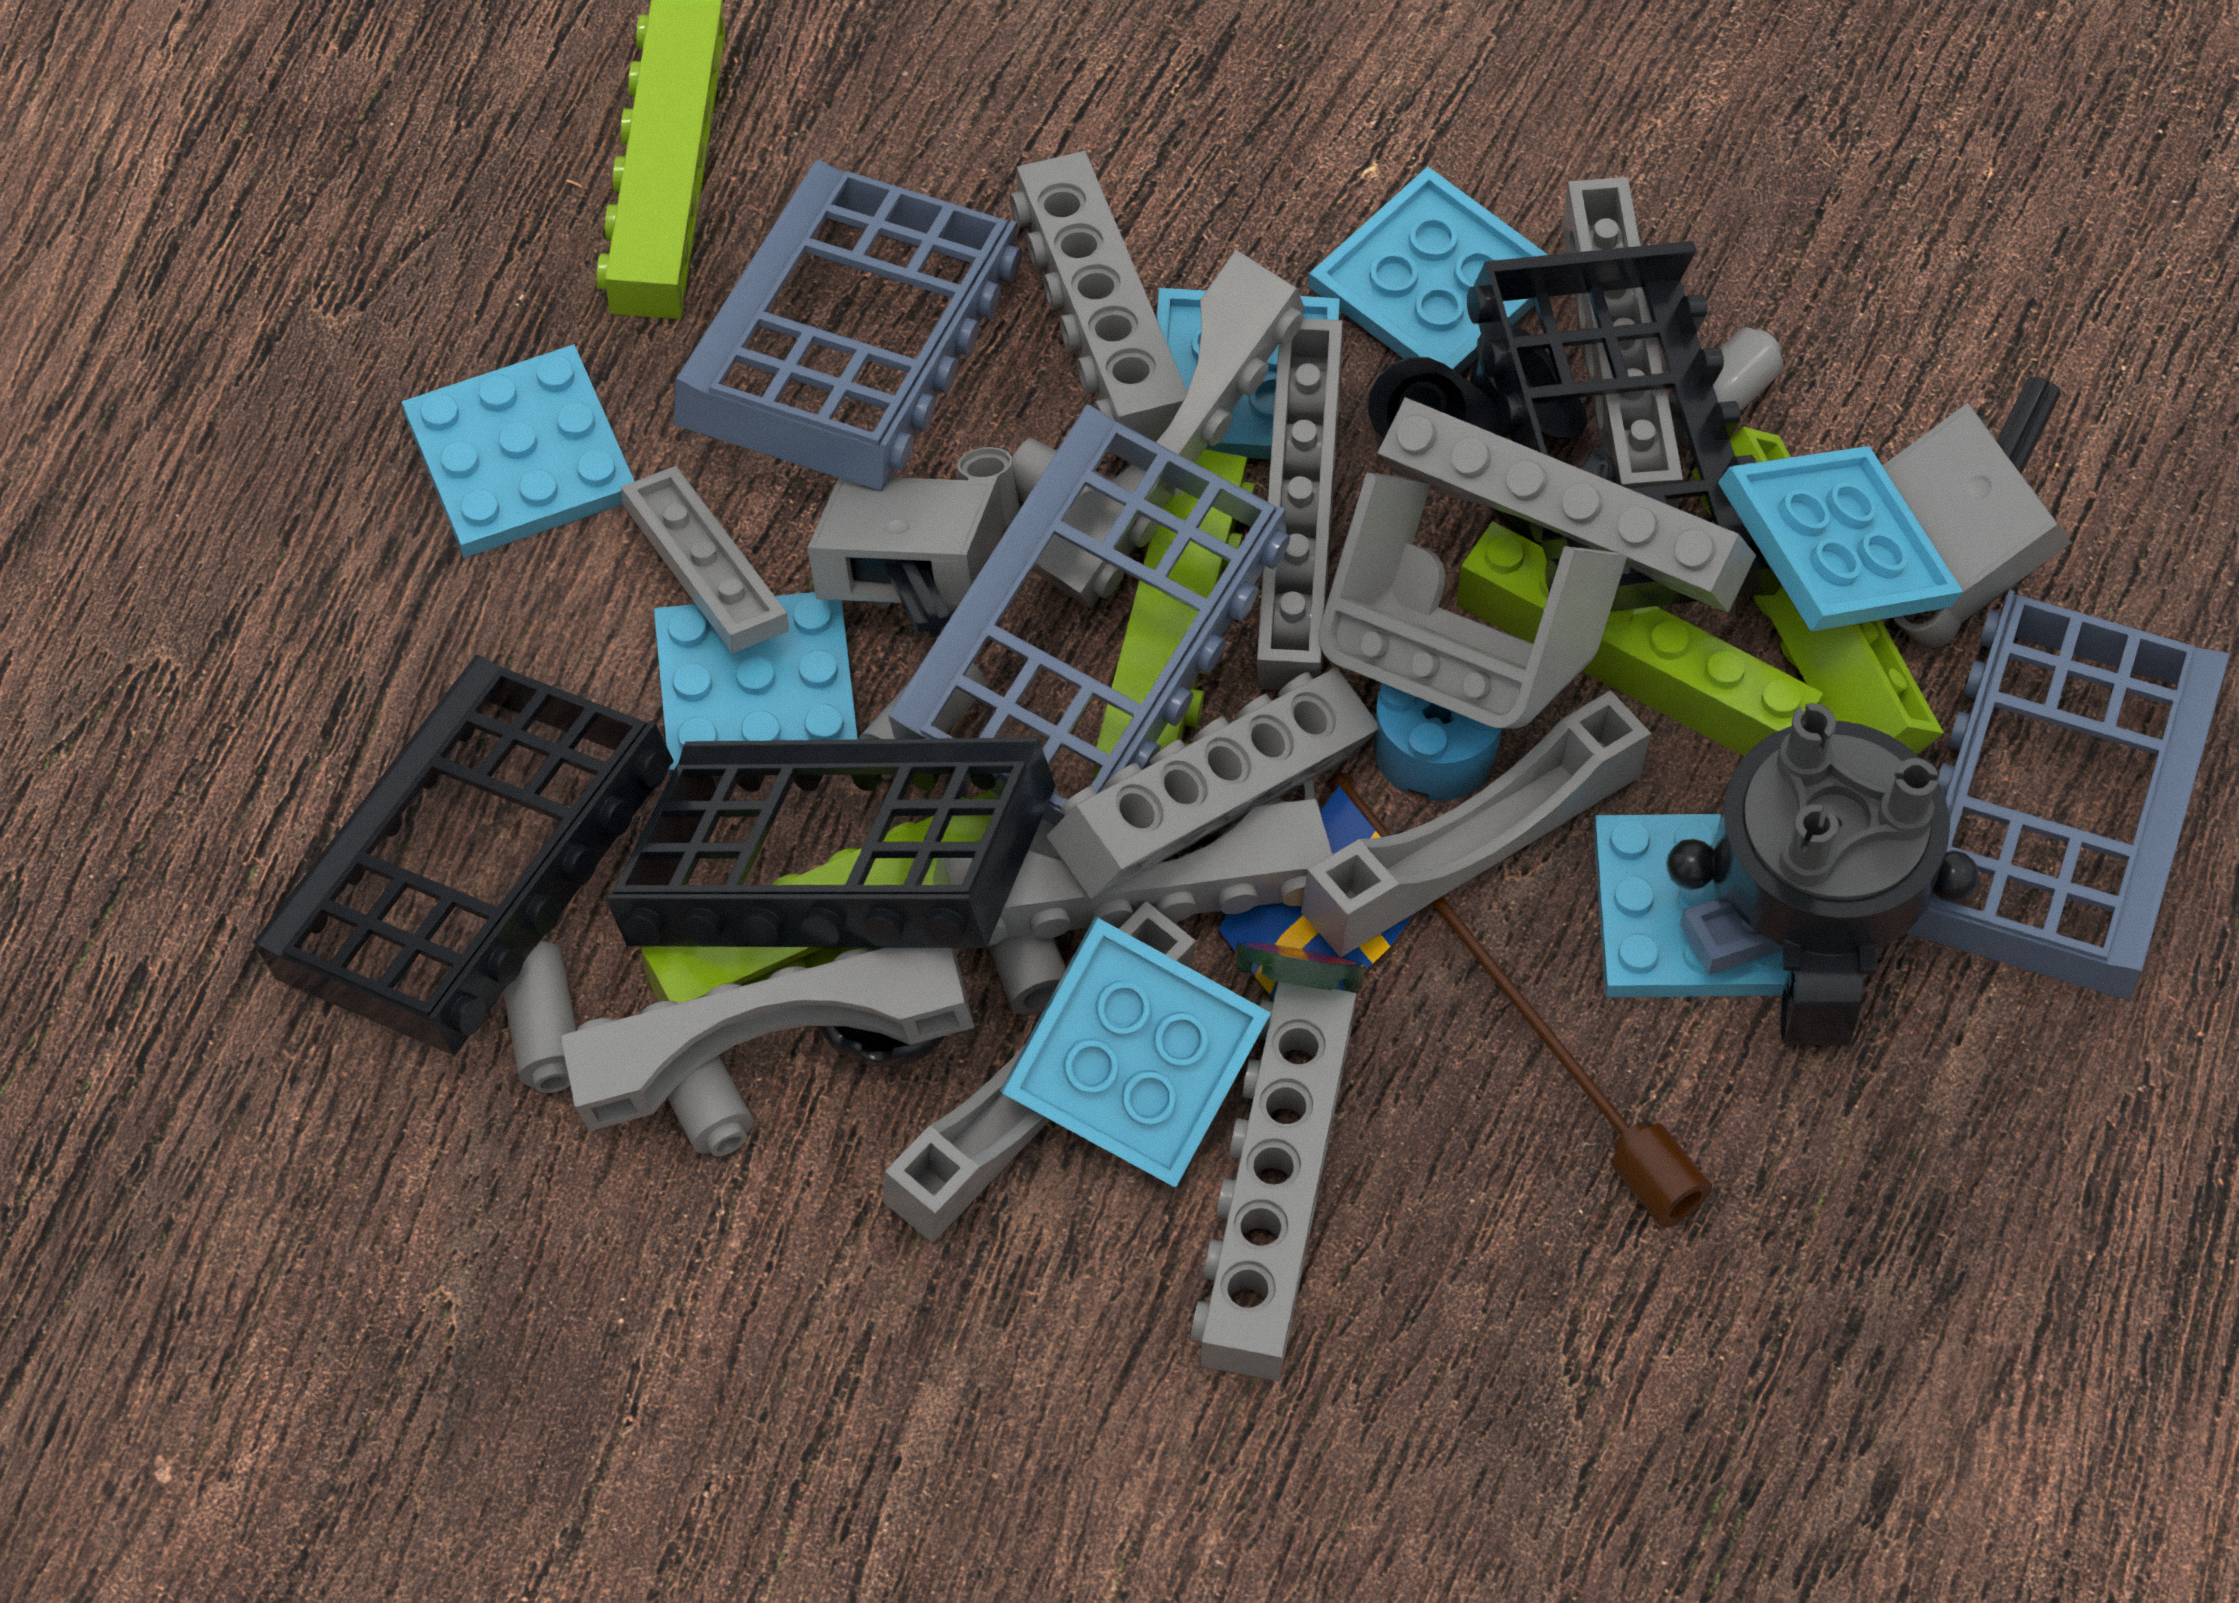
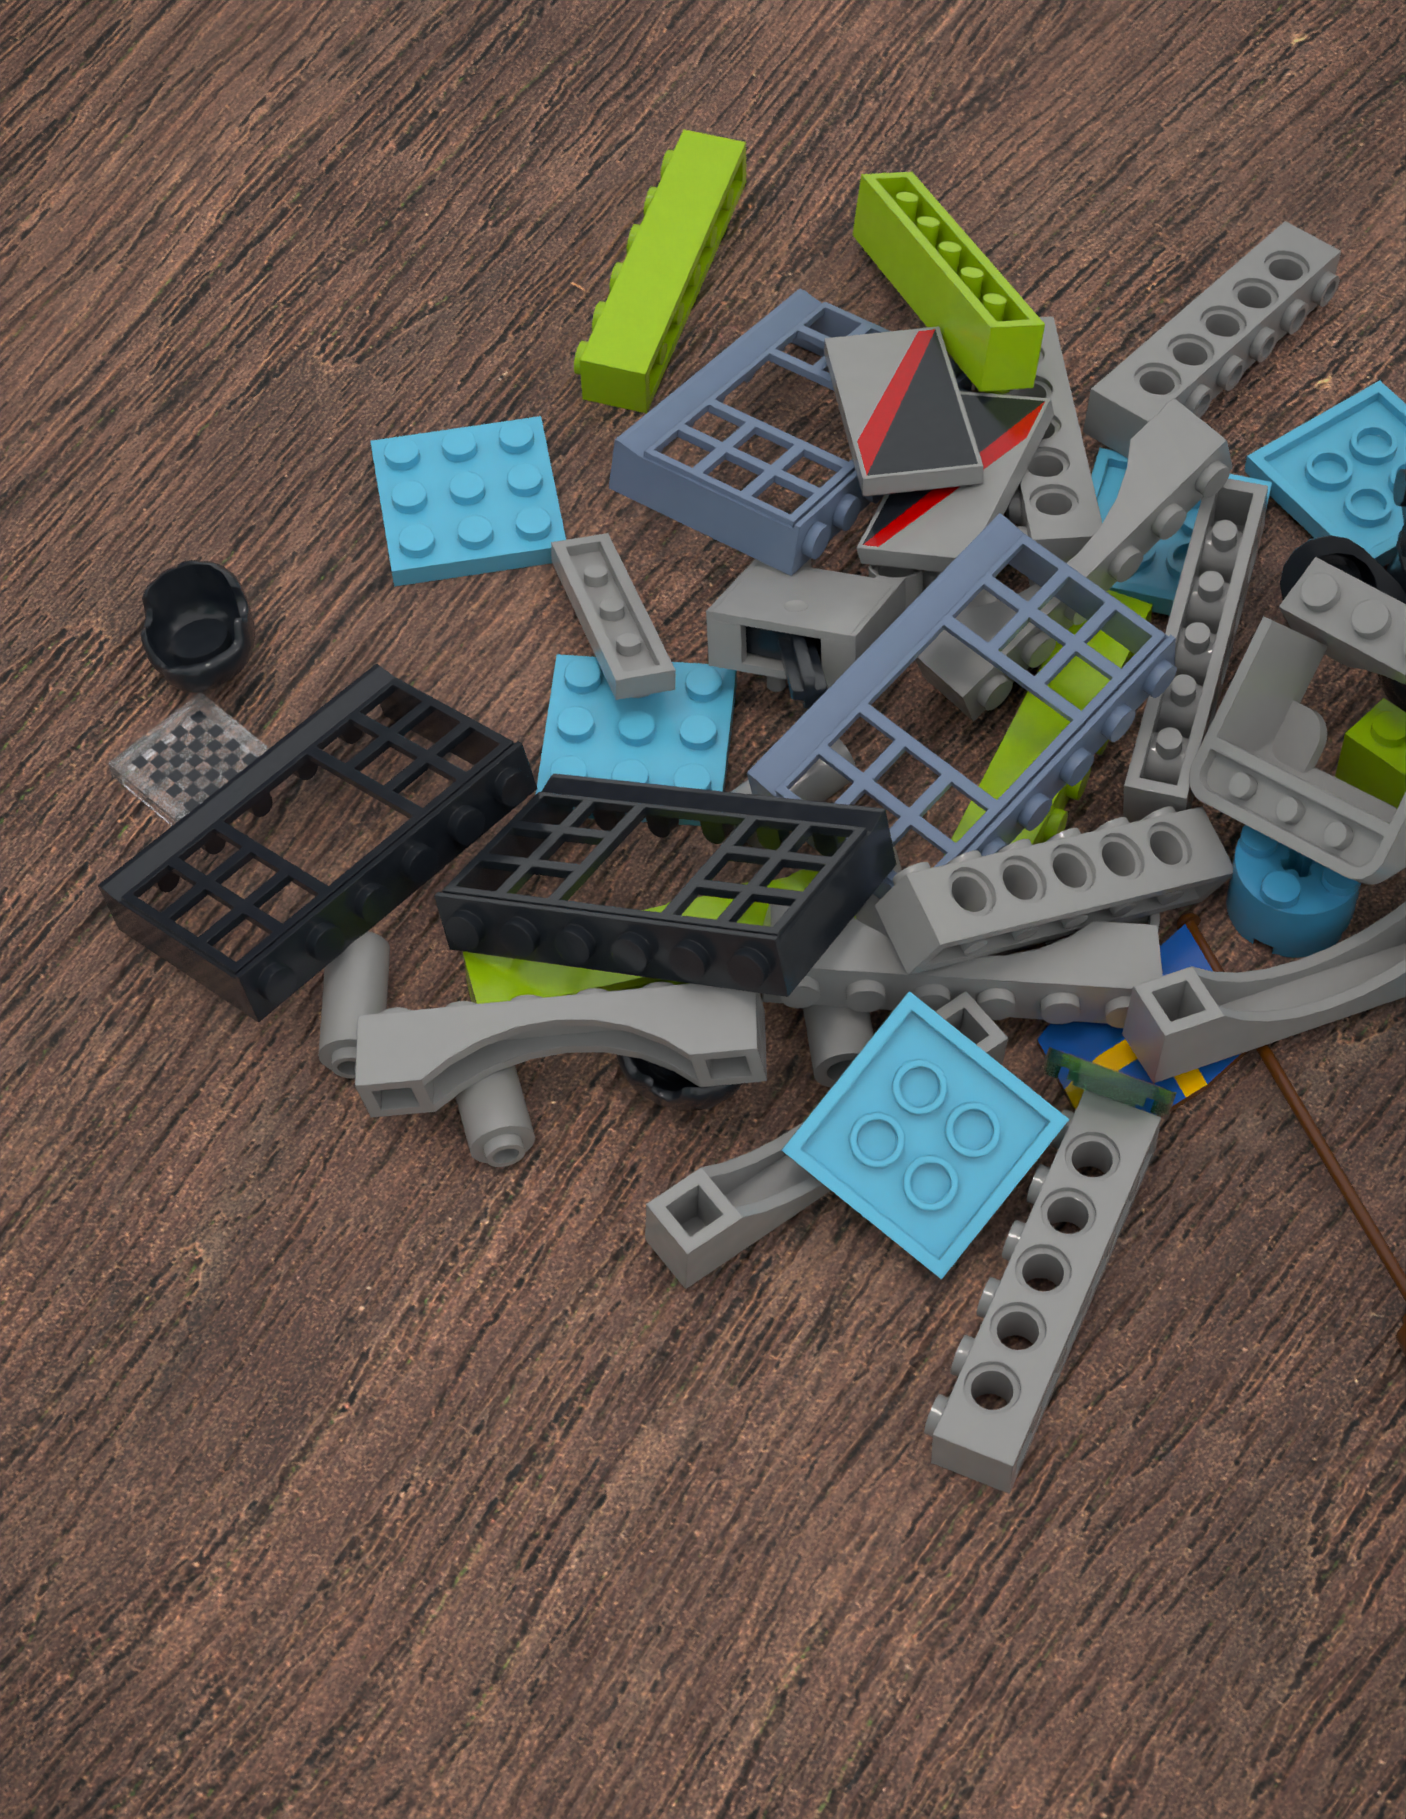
camera: 15 degrees right, 5 degrees down
(279, 644) = (197, 625): none -> black piece
(303, 789) = (186, 758): none -> clear tile
(958, 293) = (902, 411): none -> tile
(970, 132) = (948, 282): none -> lime brick
(1027, 360) = (937, 524): none -> light grey tile
(1253, 151) = (1216, 335): none -> light grey brick

